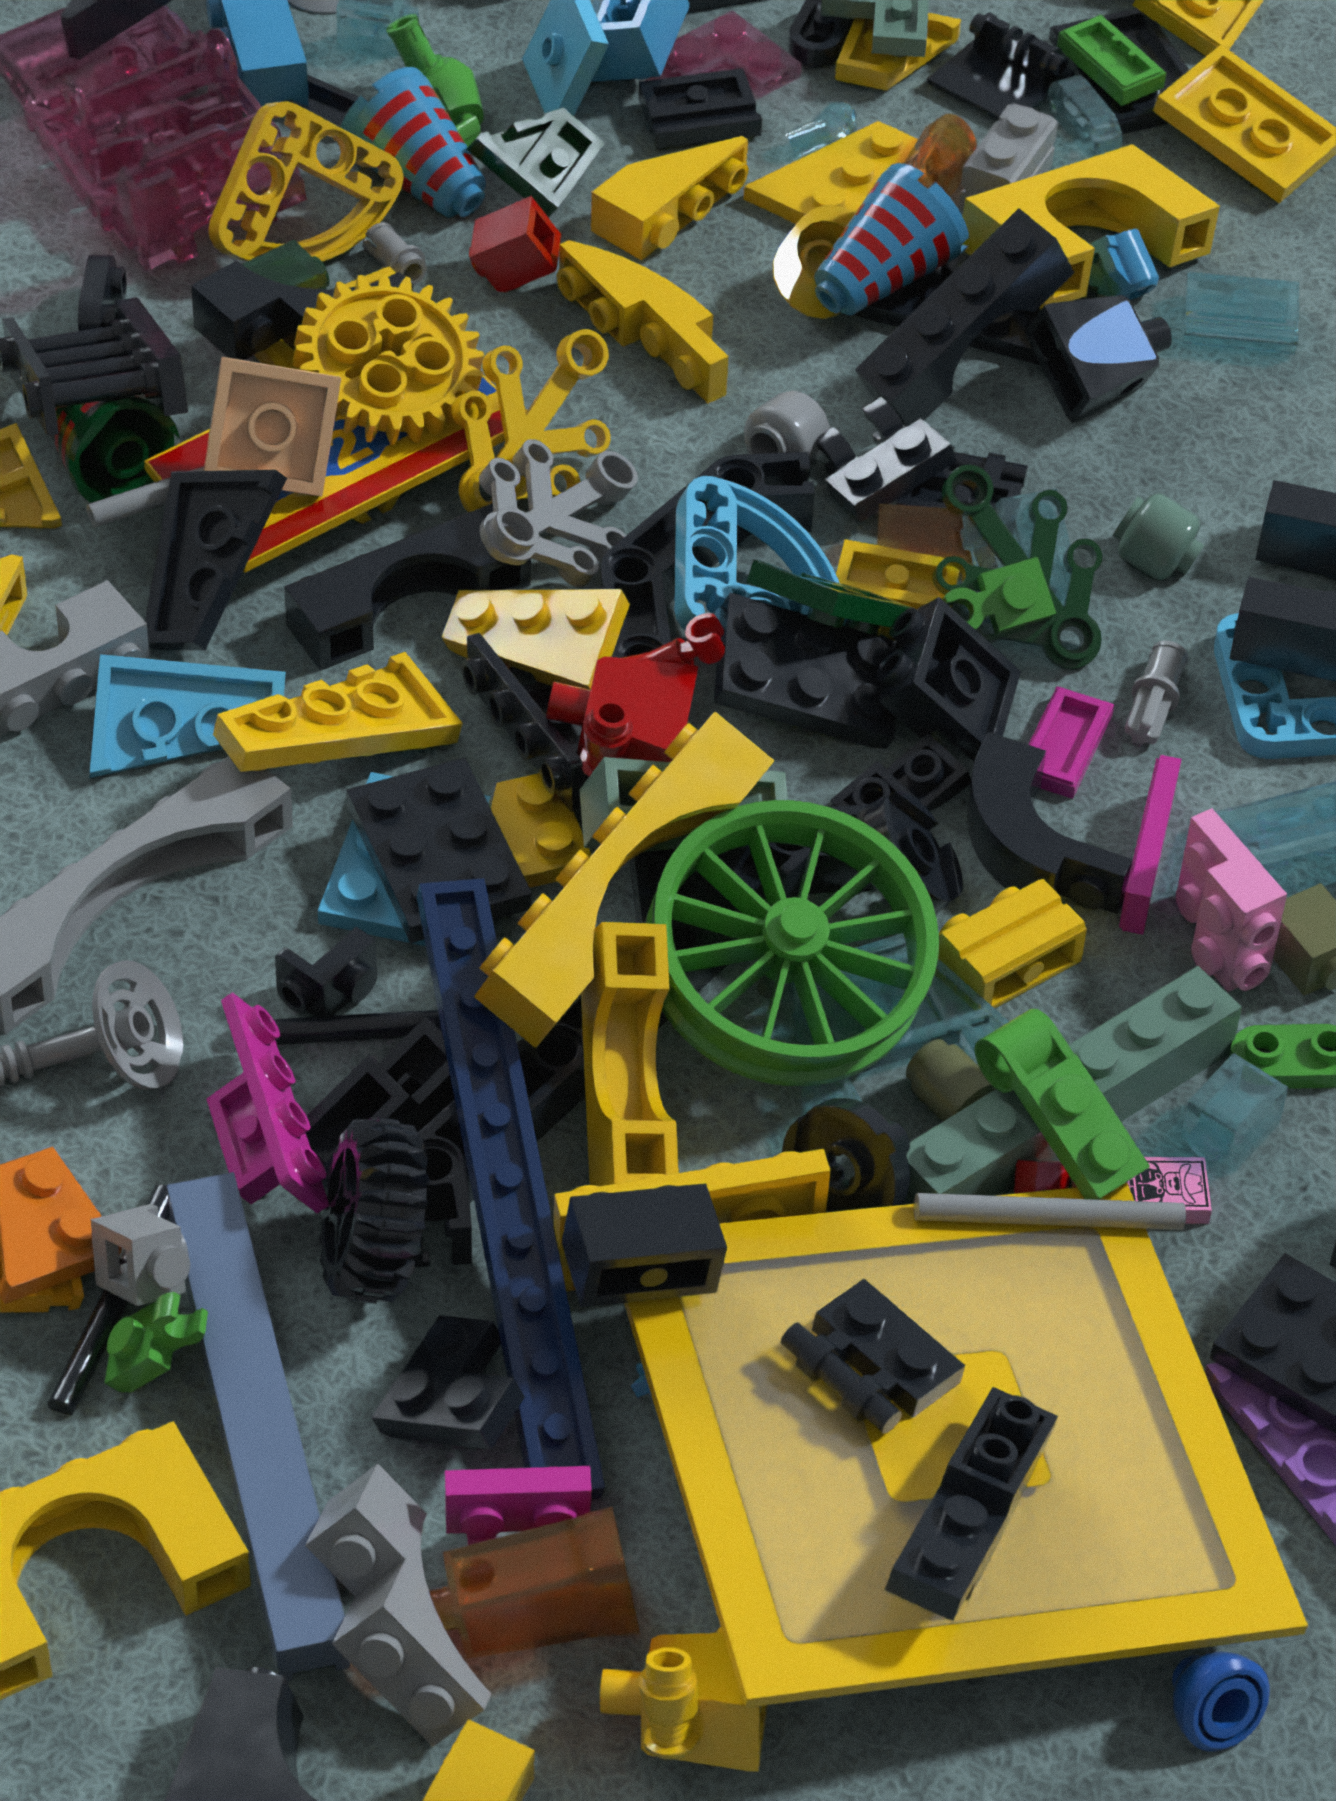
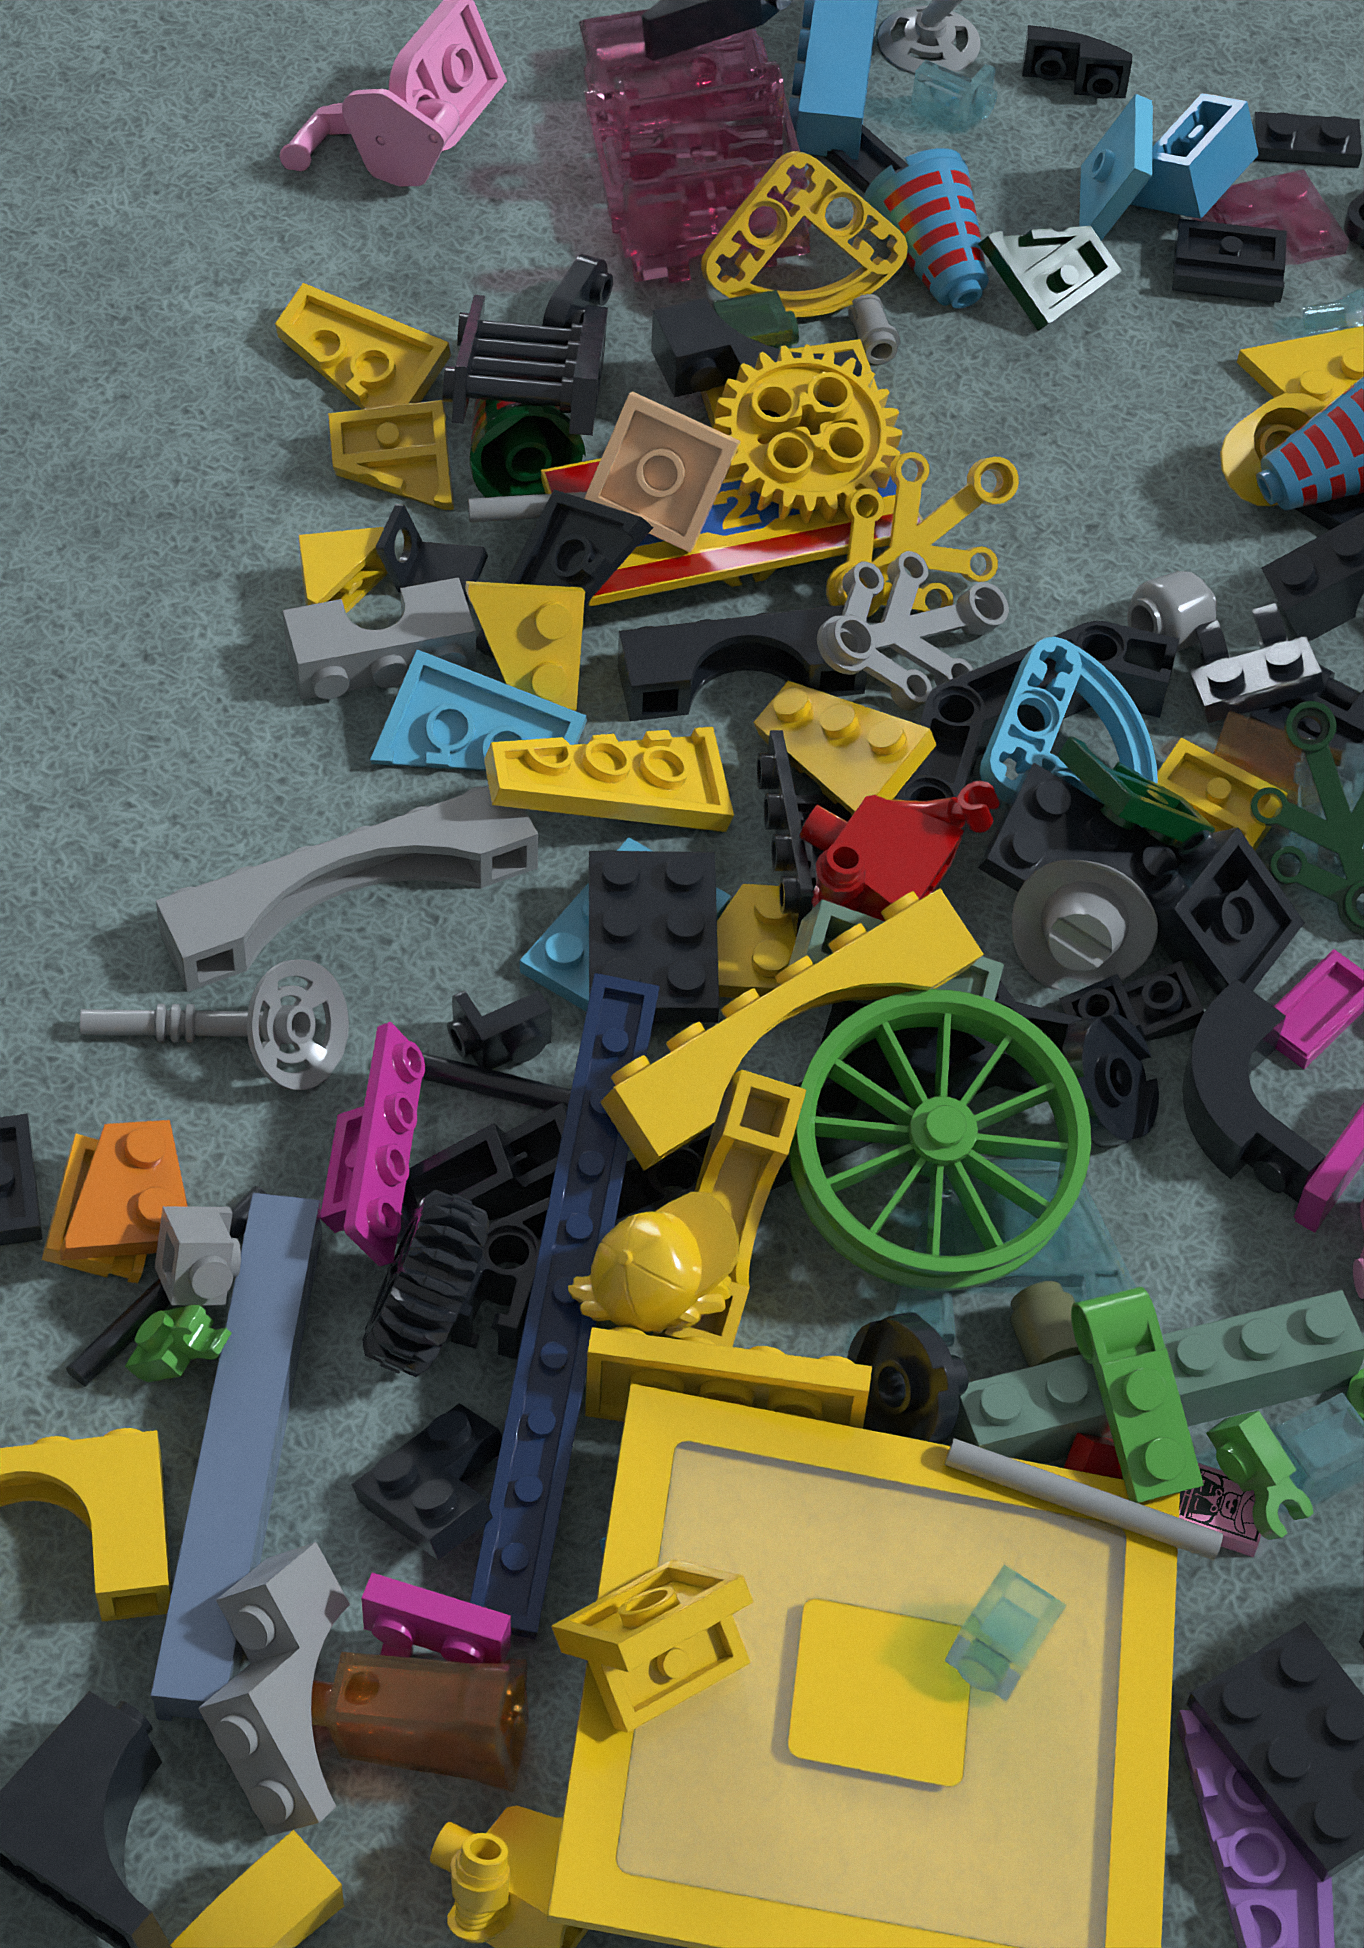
camera: 20 degrees right, 5 degrees up
(63, 577) = (426, 561): none -> black bracket
(206, 610) = (533, 636): none -> yellow wing
(449, 77) = (991, 167): bright green arm -> none
(515, 245) = (987, 351): red brick -> none
(596, 1120) = (662, 1266): none -> yellow hair
(642, 305) = (1090, 448): yellow slope -> none
(643, 1244) = (648, 1410): black brick -> none
(659, 196) = (1148, 339): yellow slope -> none
(743, 1431) = (659, 1639): none -> yellow bracket
(829, 723) = (1082, 923): none -> light grey hat
(882, 1344) = (850, 1590): black plate -> none
(972, 1504) = (855, 1792): black slope -> none
(1008, 597) = (1317, 846): bright green plate -> none
(1013, 942) = (1171, 1203): yellow brick -> none
(1038, 1338) = (1004, 1633): none -> clear light blue brick
(1188, 1133) = (1257, 1462): none -> bright green plate

